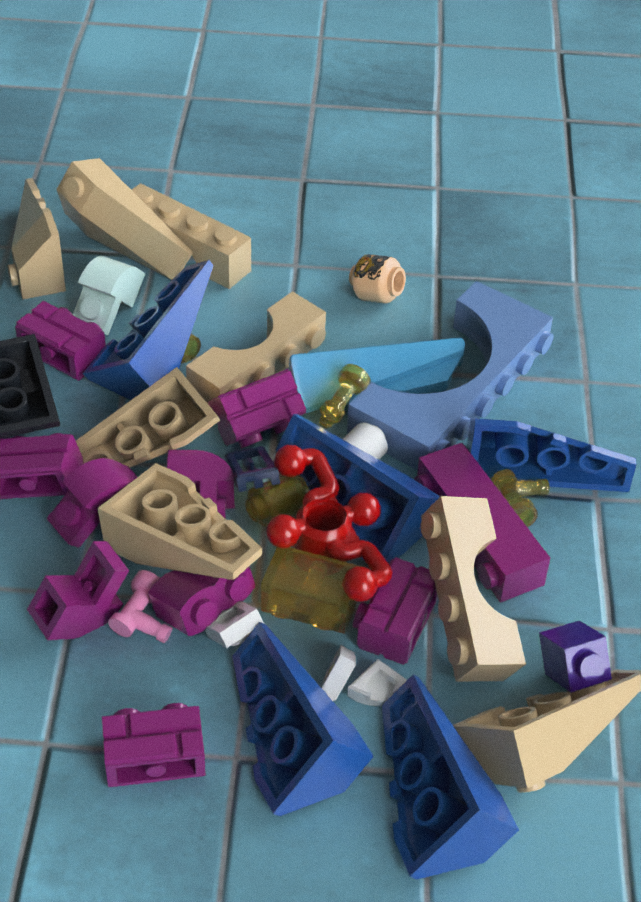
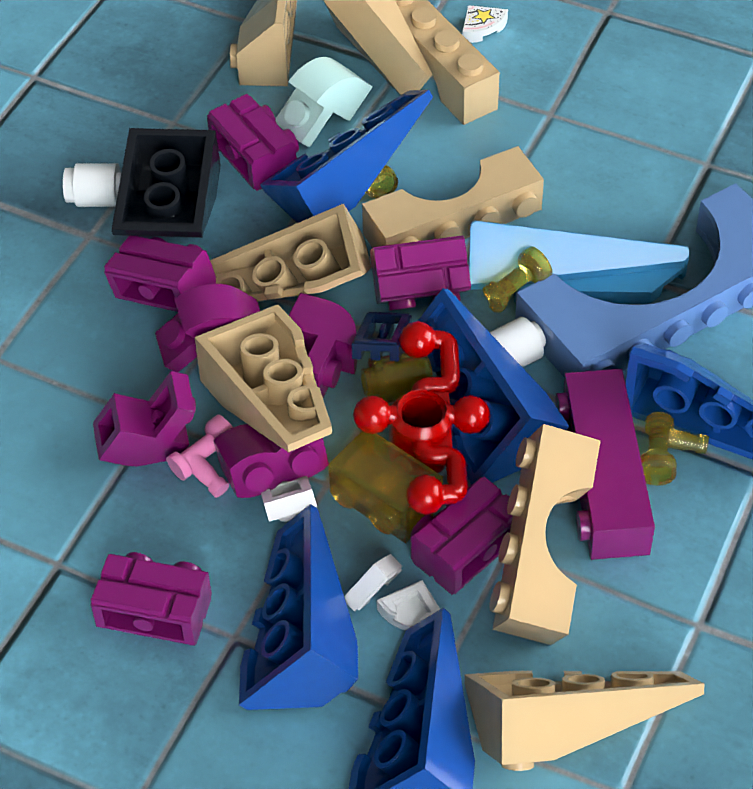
camera: 25 degrees right, 5 degrees up
(210, 204) = (483, 21): none -> white tile
(377, 278) = (628, 152): light nougat head -> none
(575, 656) = (630, 642): dark purple brick -> none

